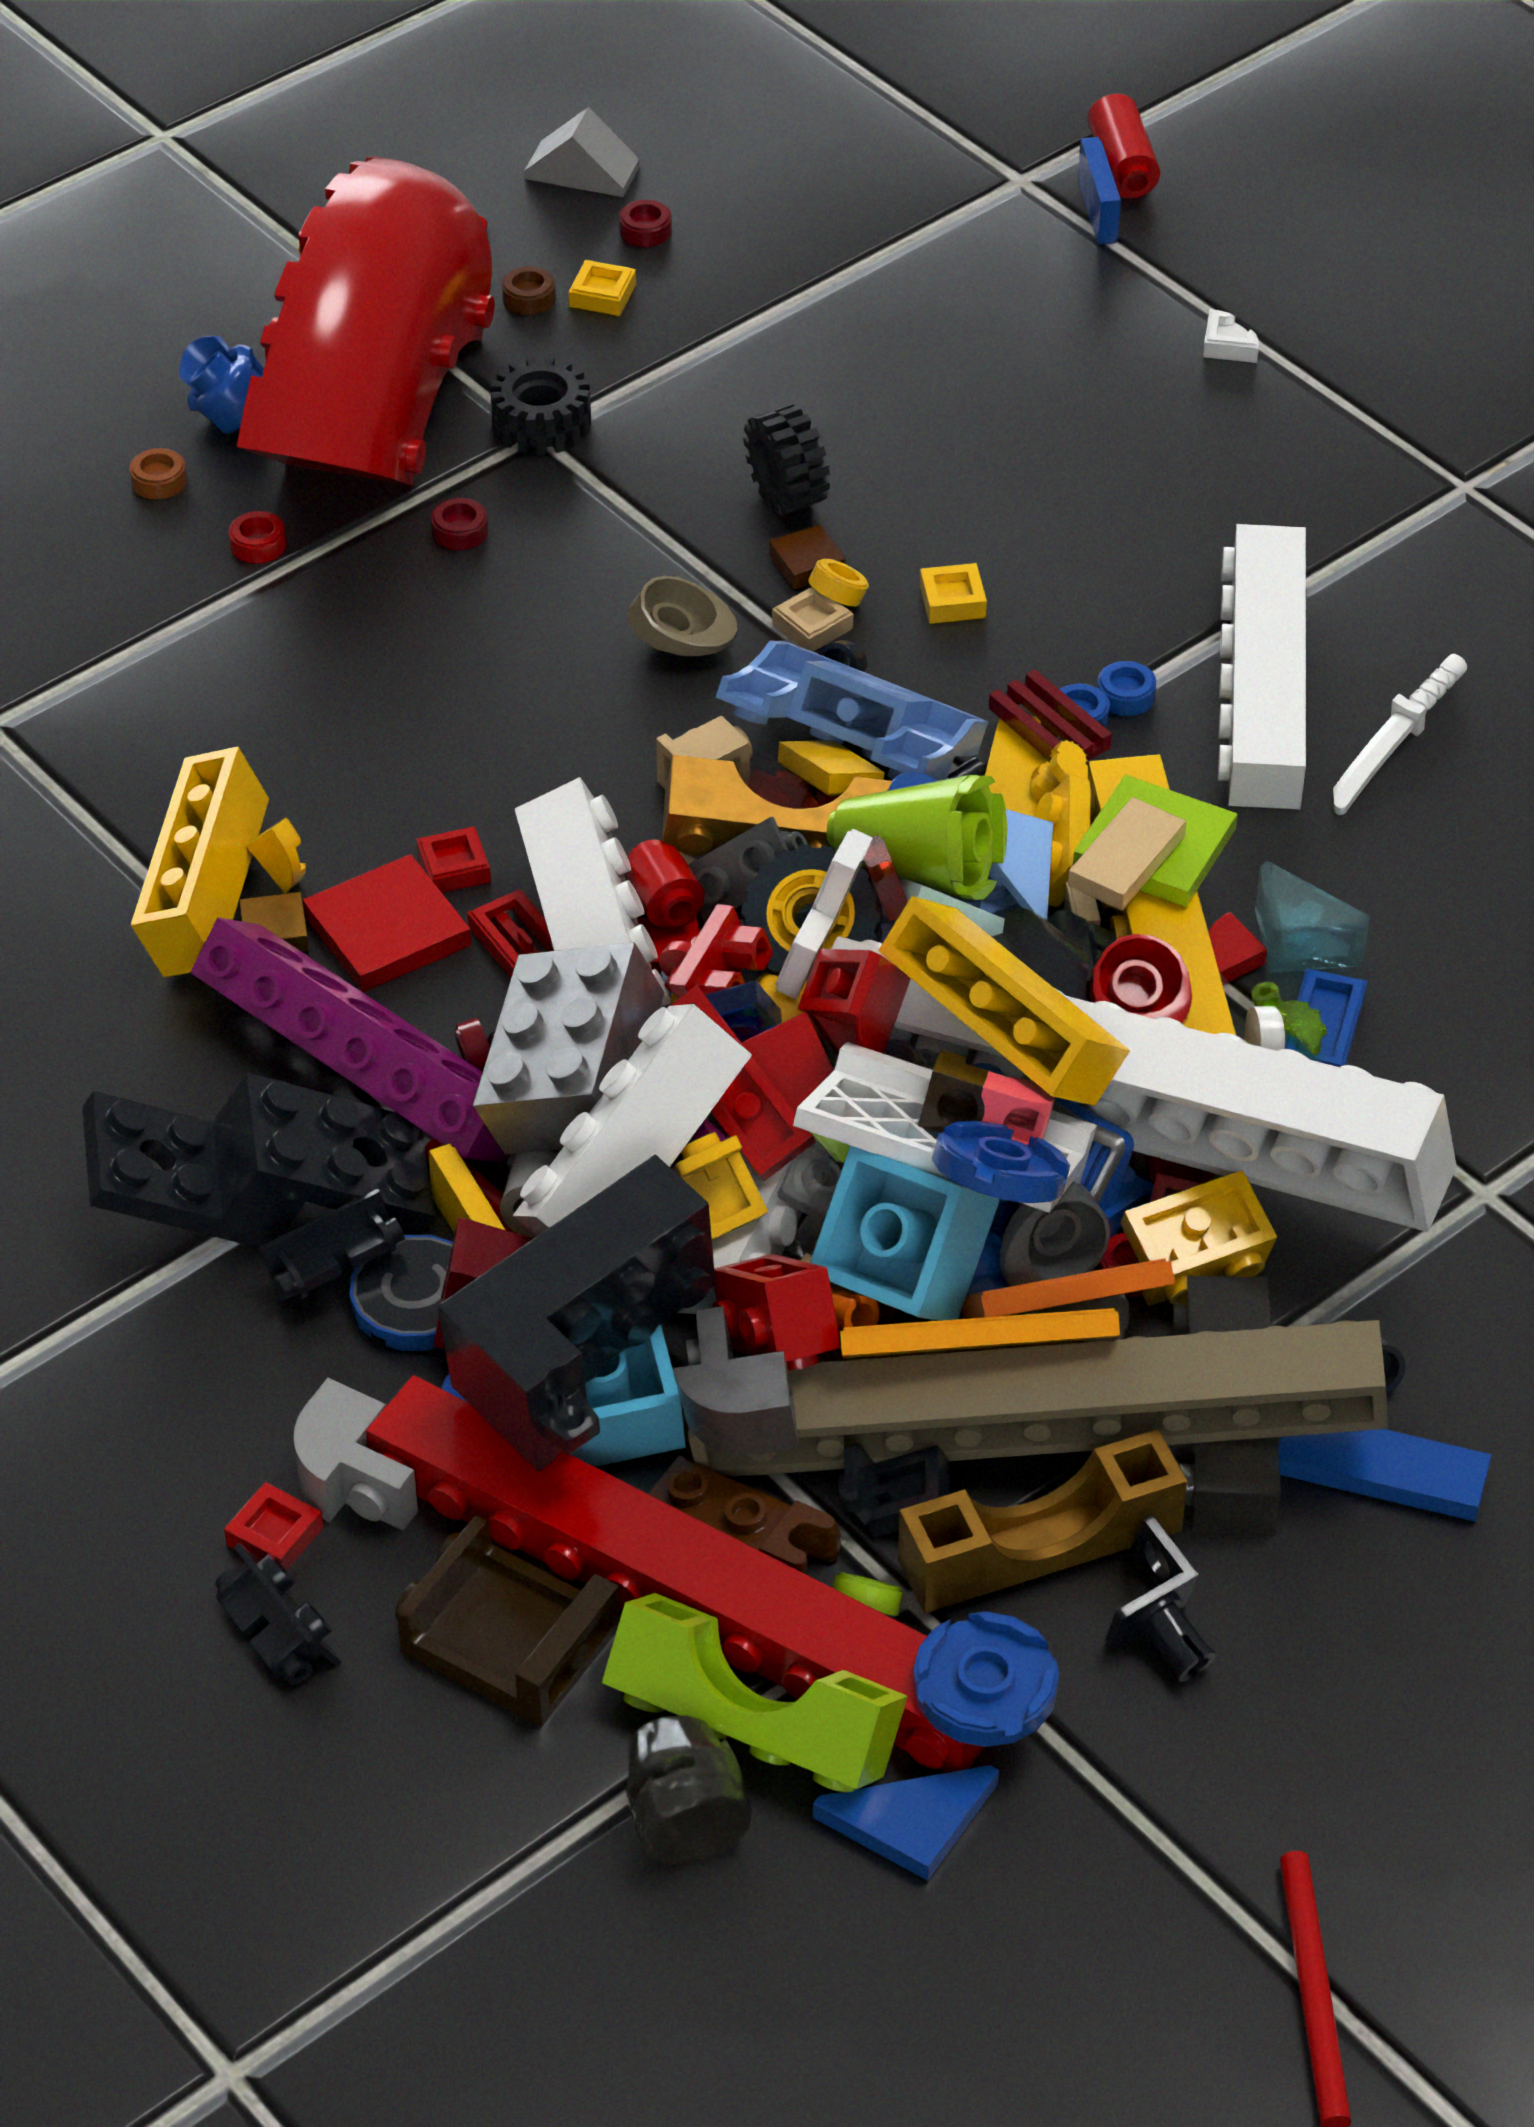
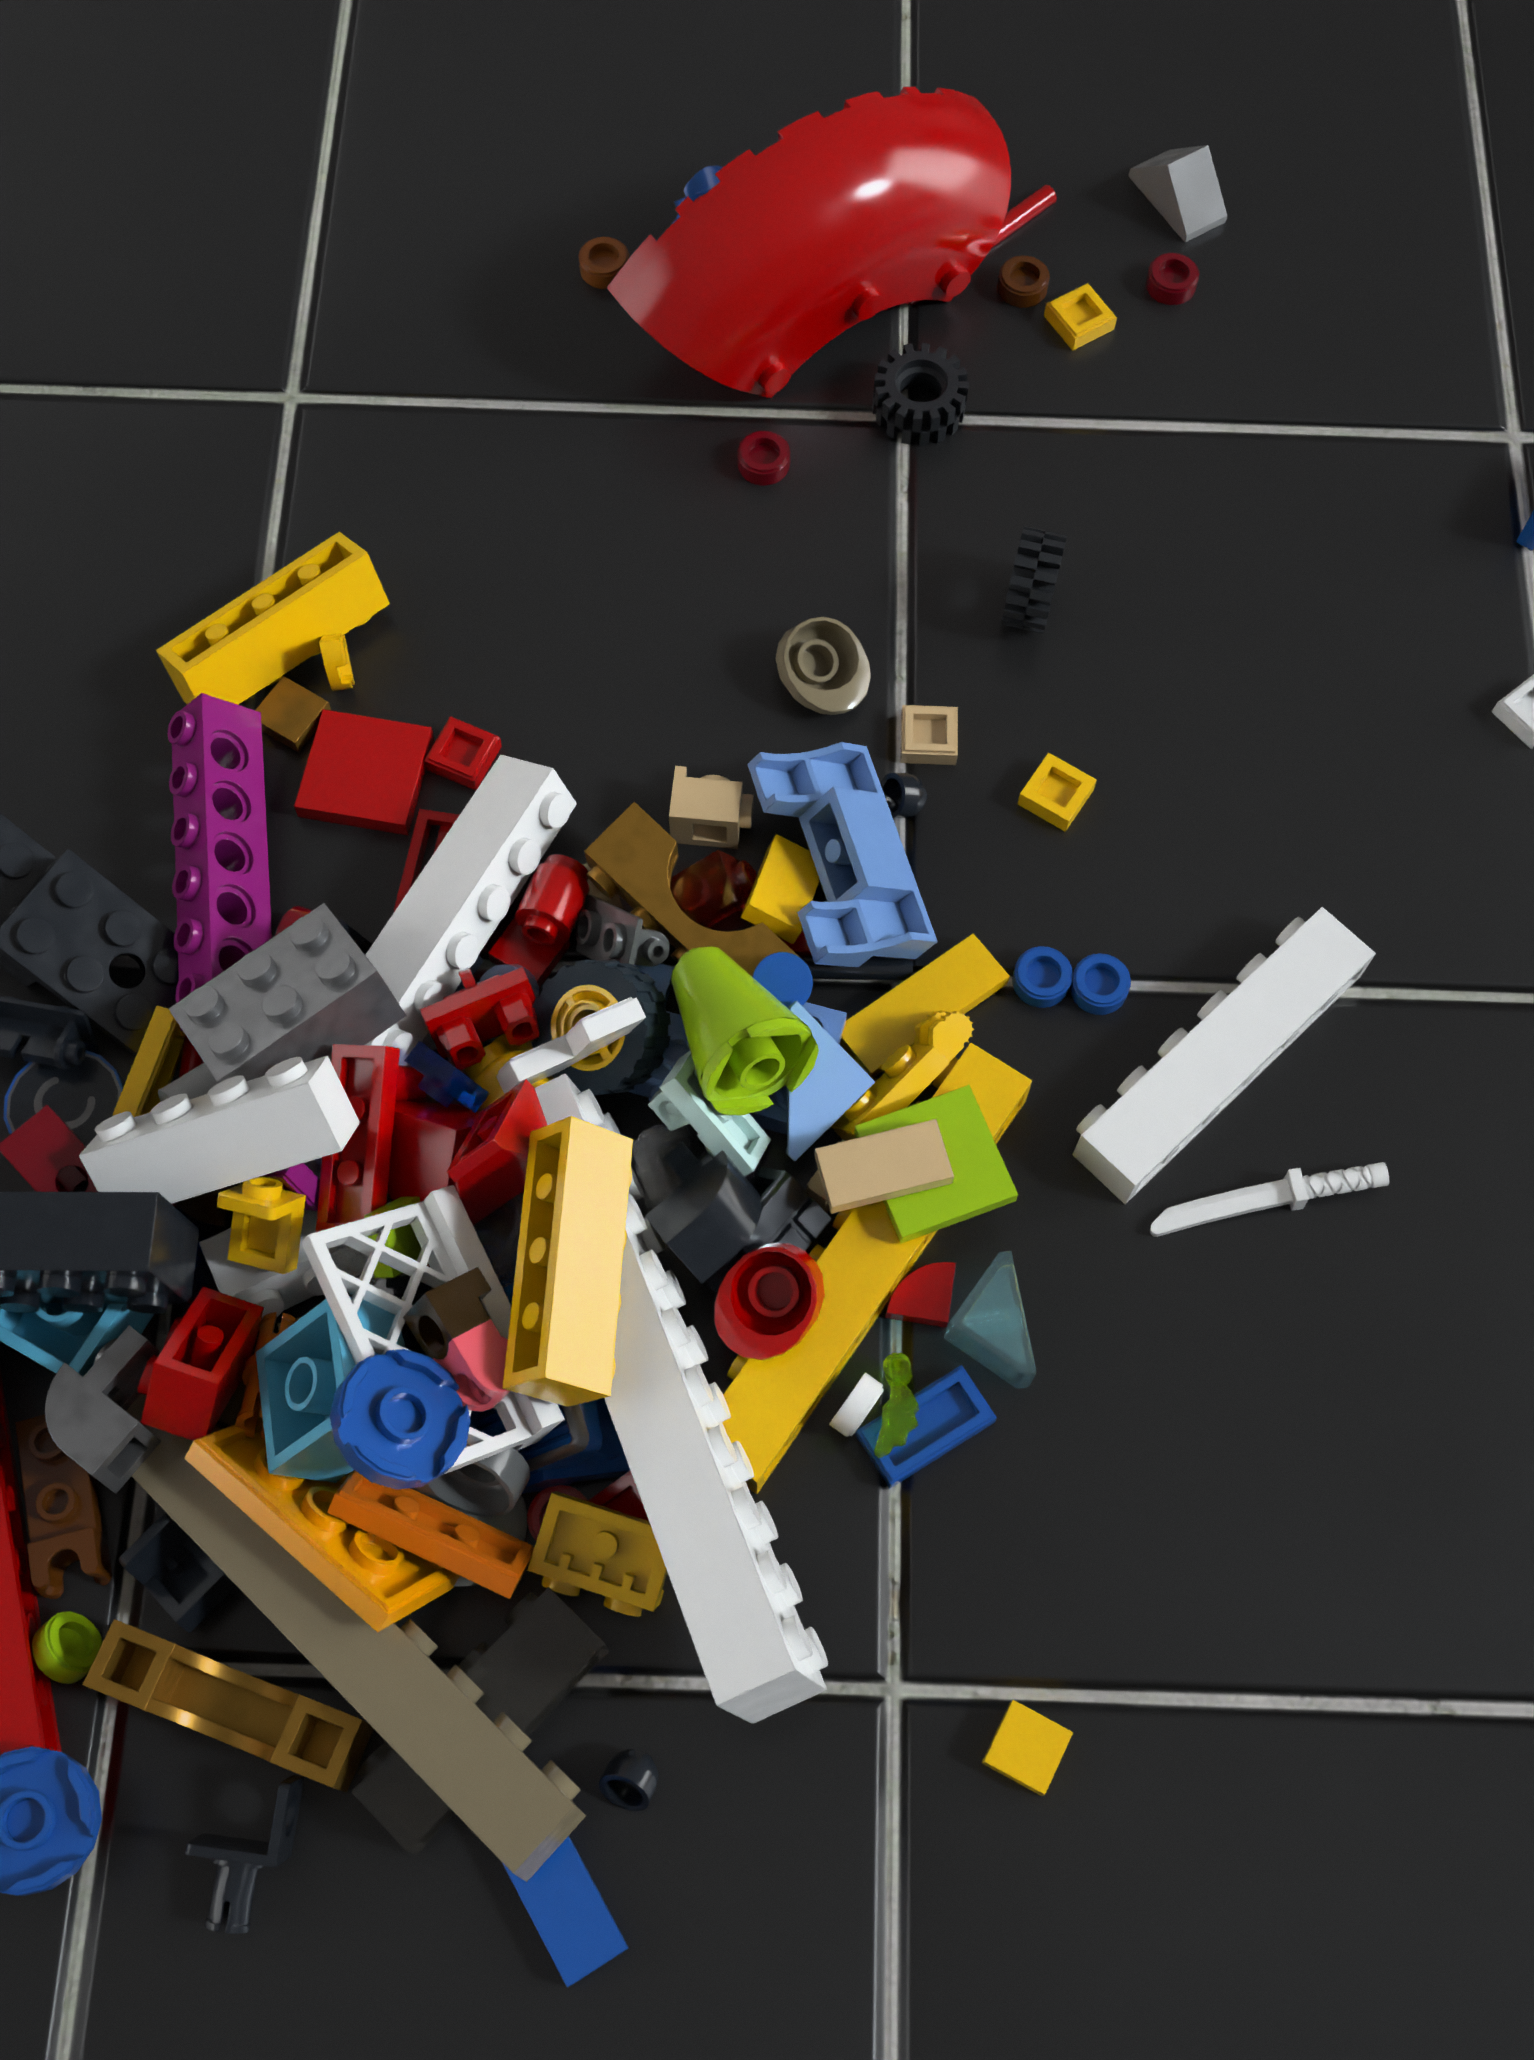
camera: 40 degrees right, 20 degrees up
(257, 537) = (615, 367): red tile -> none
(799, 552) = (981, 675): reddish brown tile -> none
(838, 582) = (973, 719): yellow tile -> none
(885, 878) = (658, 1045): clear red tile -> none
(1057, 715) = (994, 931): dark red tile -> none

